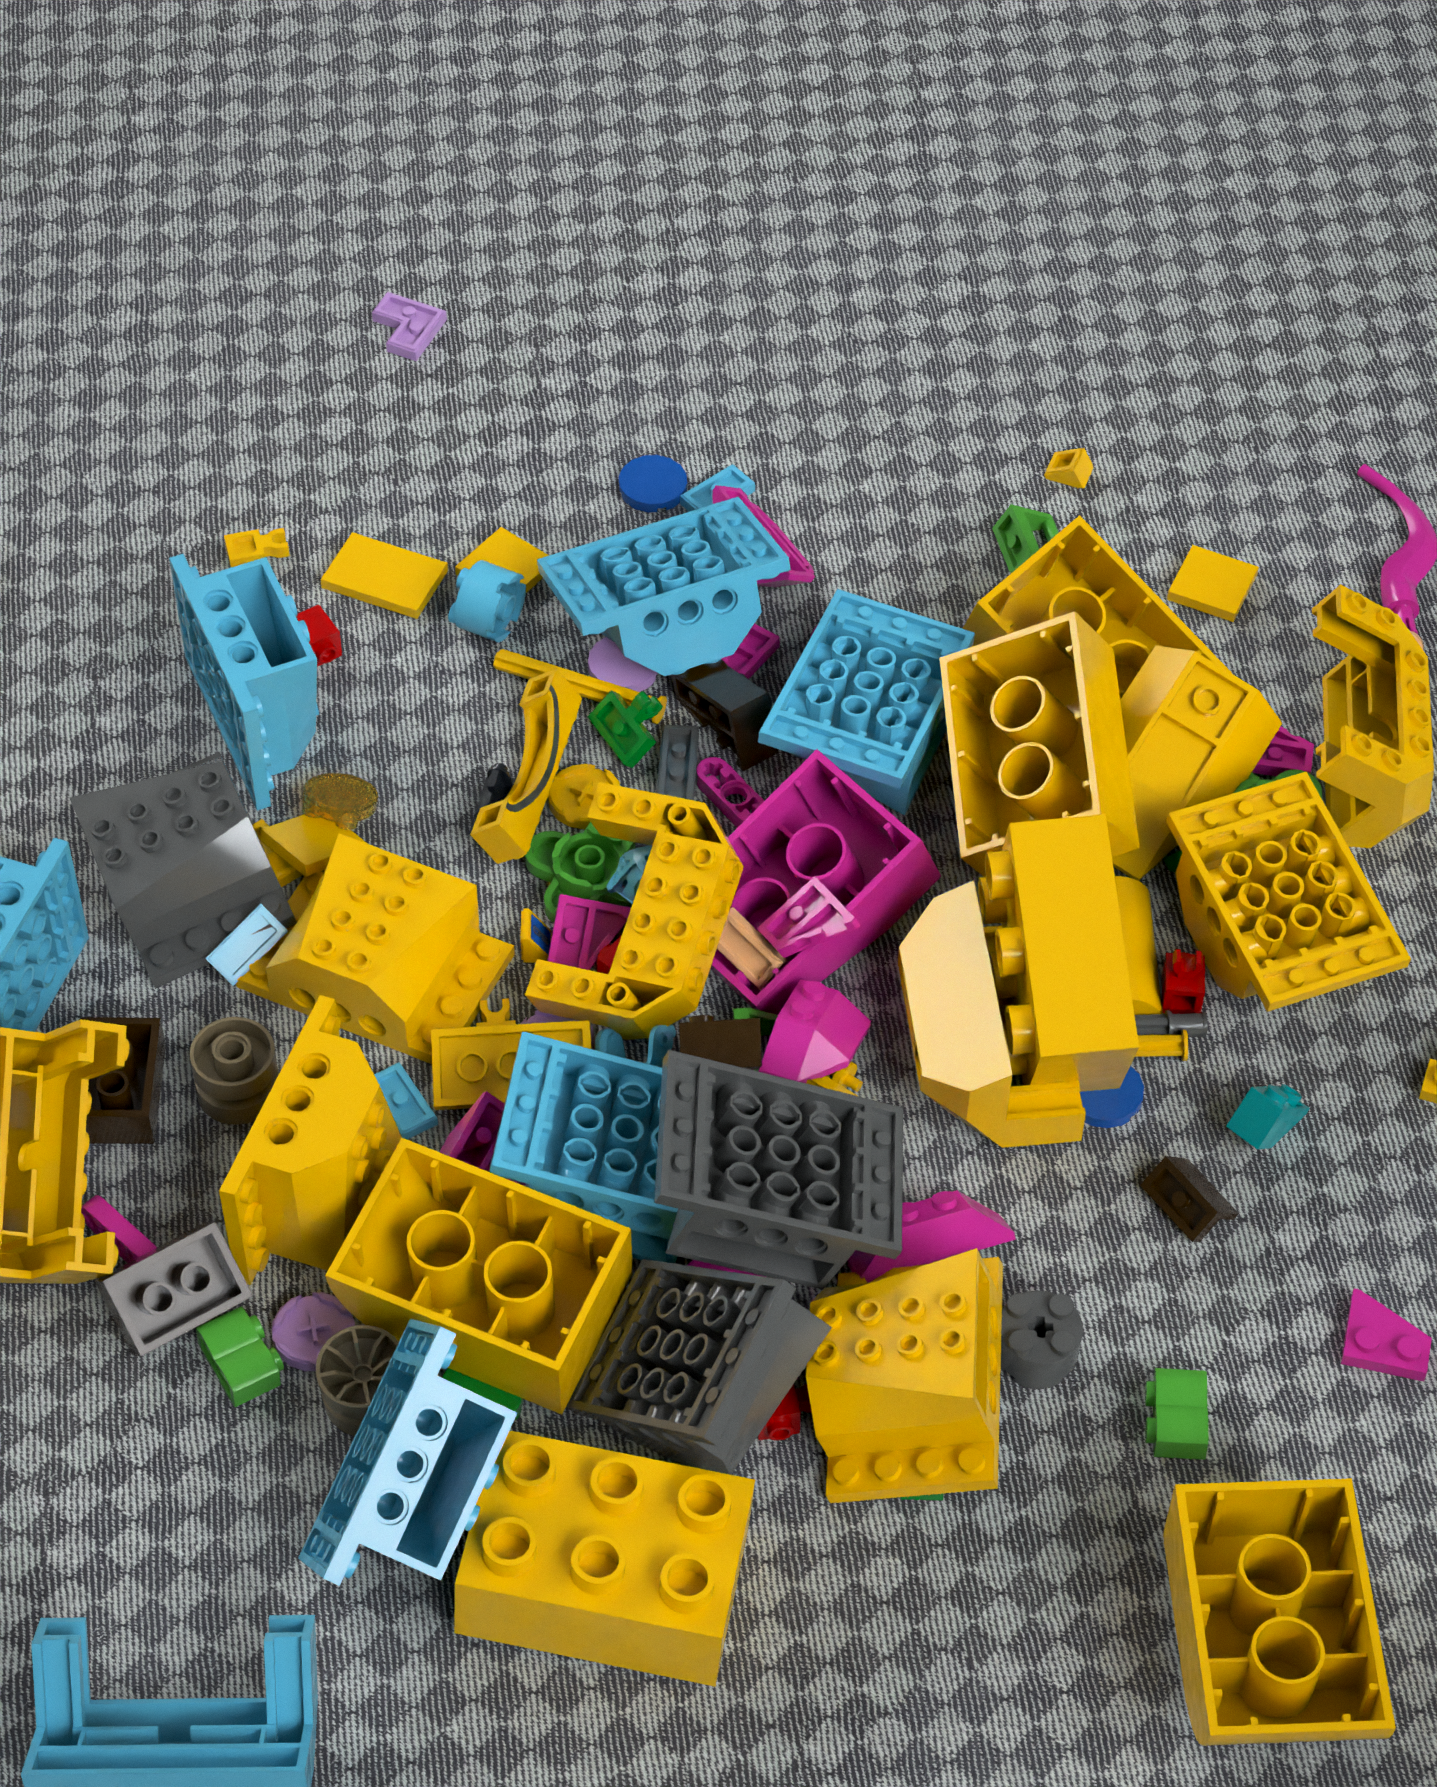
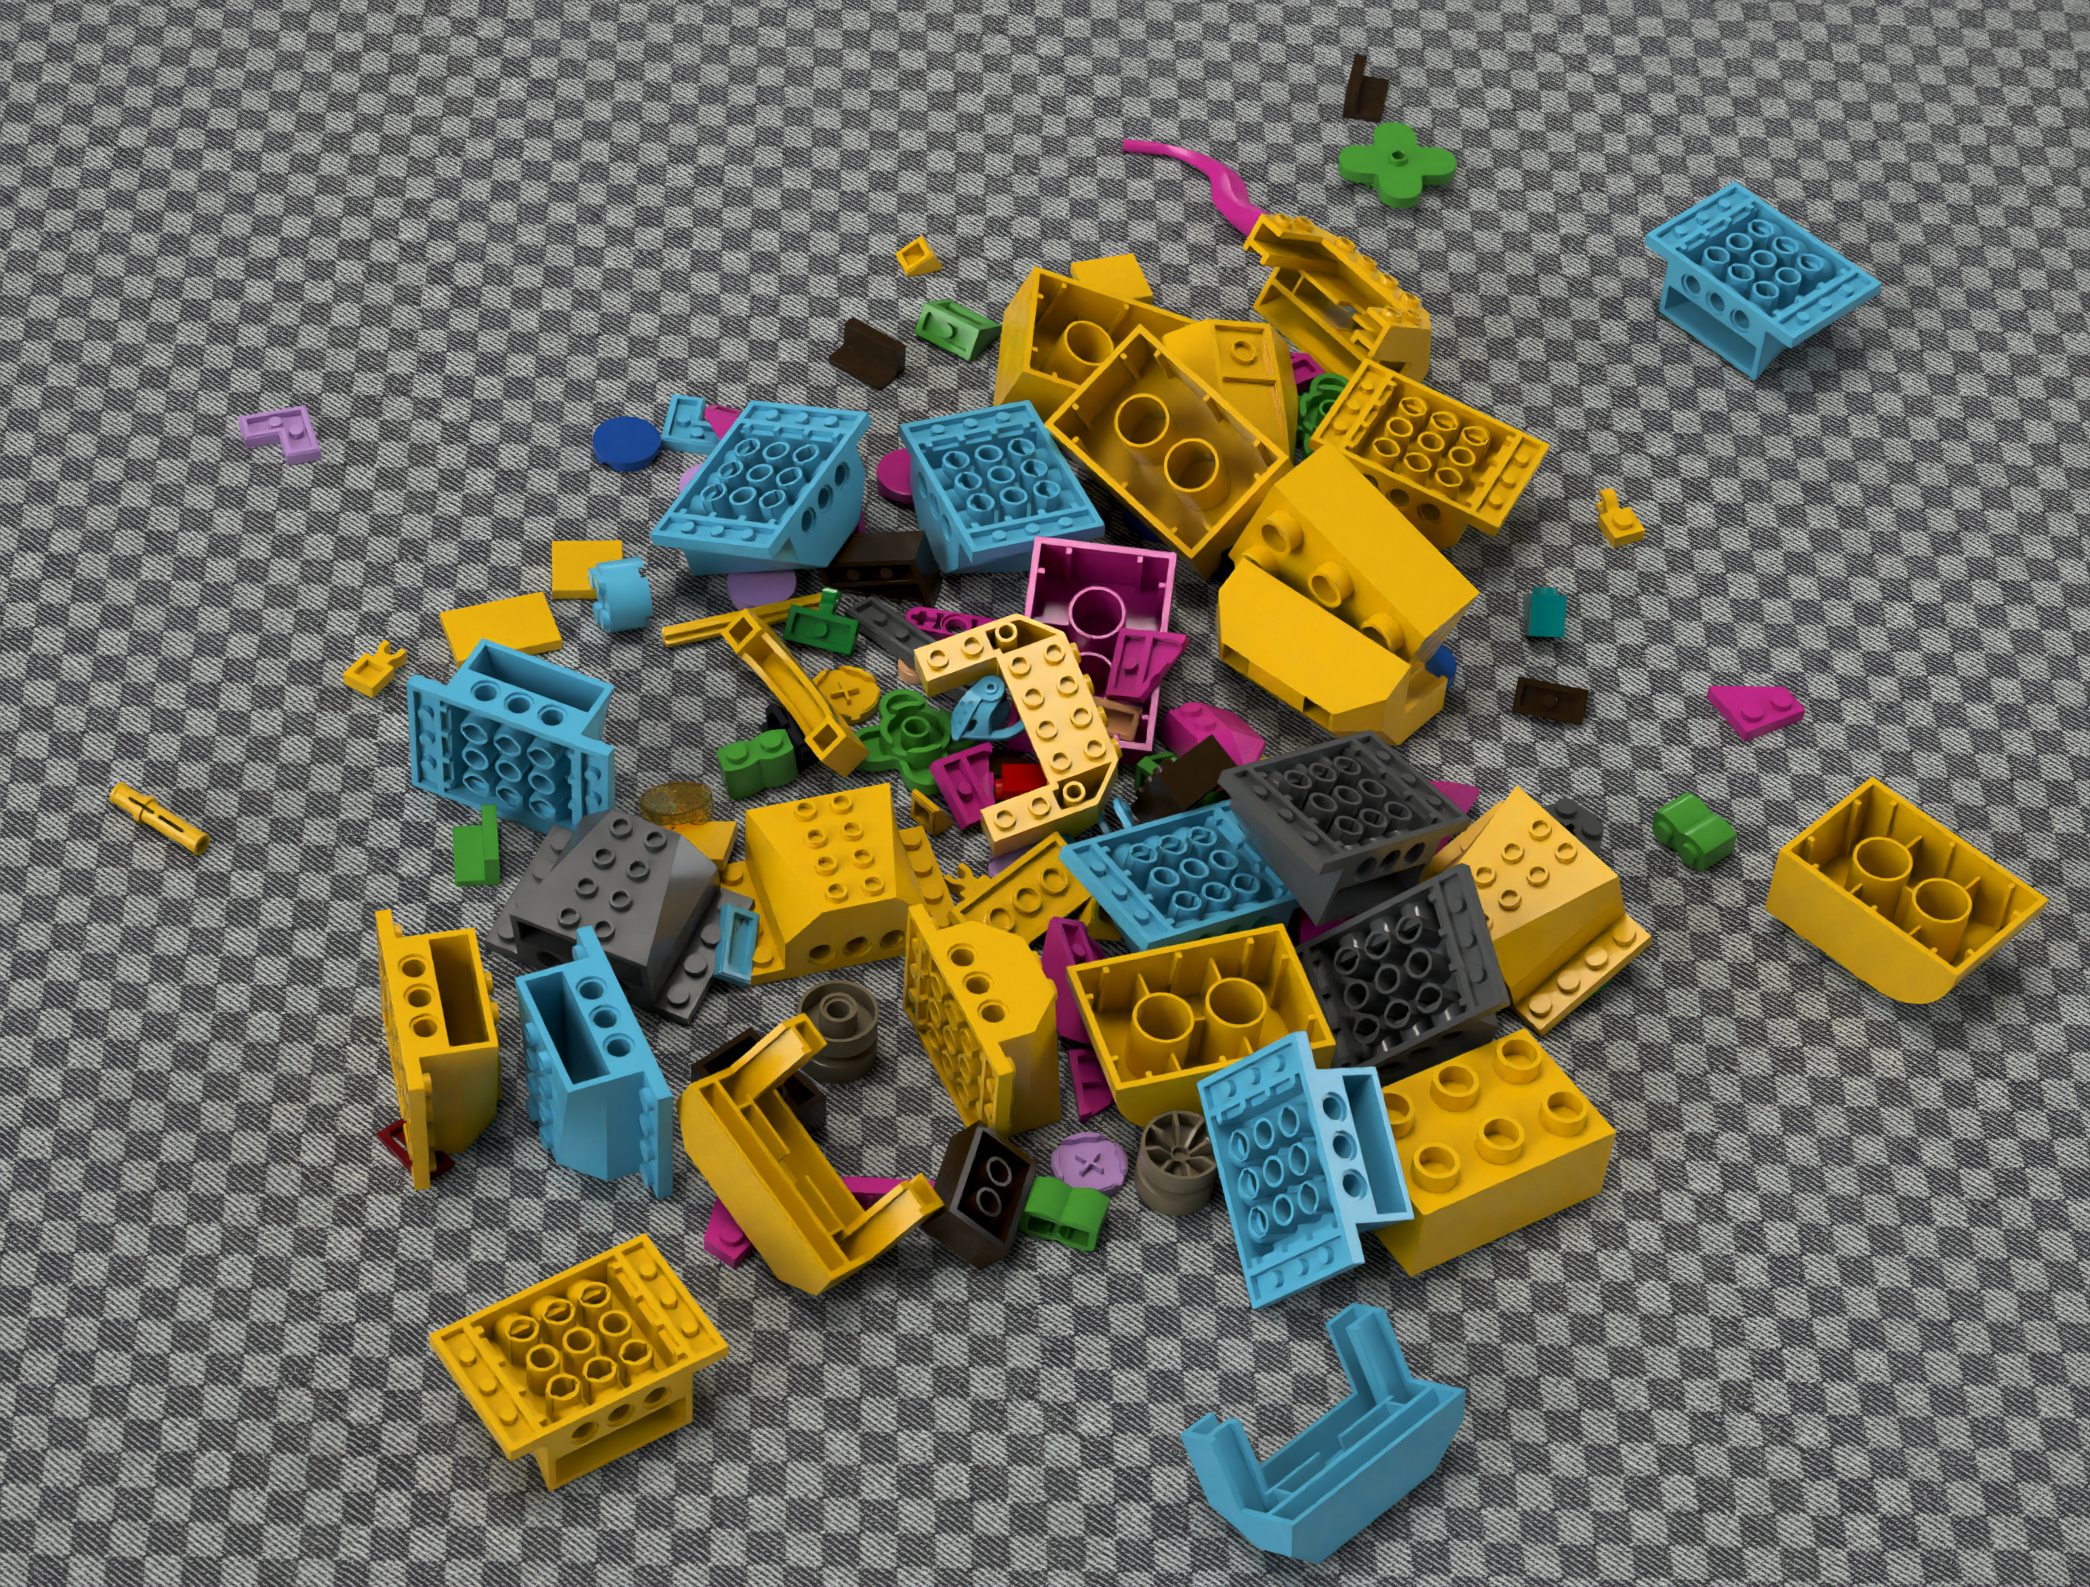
camera: 45 degrees left, 5 degrees down
(165, 739) = (477, 851): none -> bright green panel
(436, 806) = (757, 764): none -> bright green brick
(927, 526) = (869, 355): none -> dark brown panel

